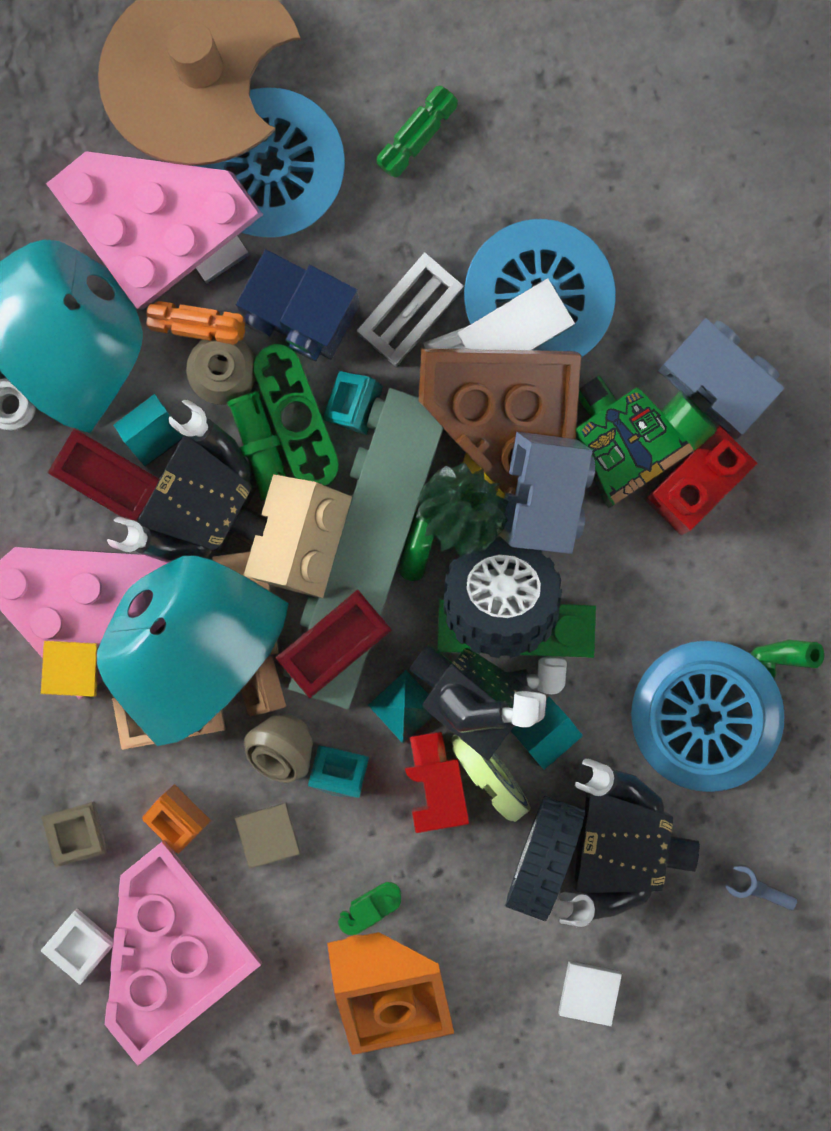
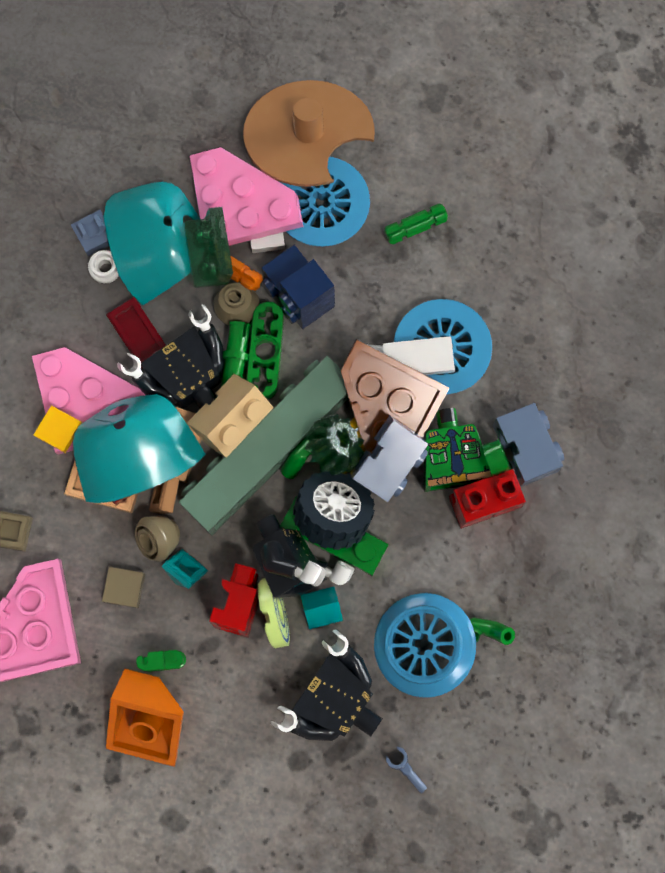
camera: 30 degrees right, 10 degrees down
(148, 430) = (175, 318): teal slope -> none
(150, 315) = (209, 249): none -> clear green bracket
(176, 819) = (74, 550): orange slope -> none
(333, 643) = (219, 487): dark red tile -> none
(352, 401) = (302, 356): teal slope -> none
(402, 706) = (240, 548): teal slope -> none
(439, 276) = (355, 310): white tile -> none
(545, 858) = (281, 679): black wheel -> none
(589, 993) = (269, 783): white tile -> none

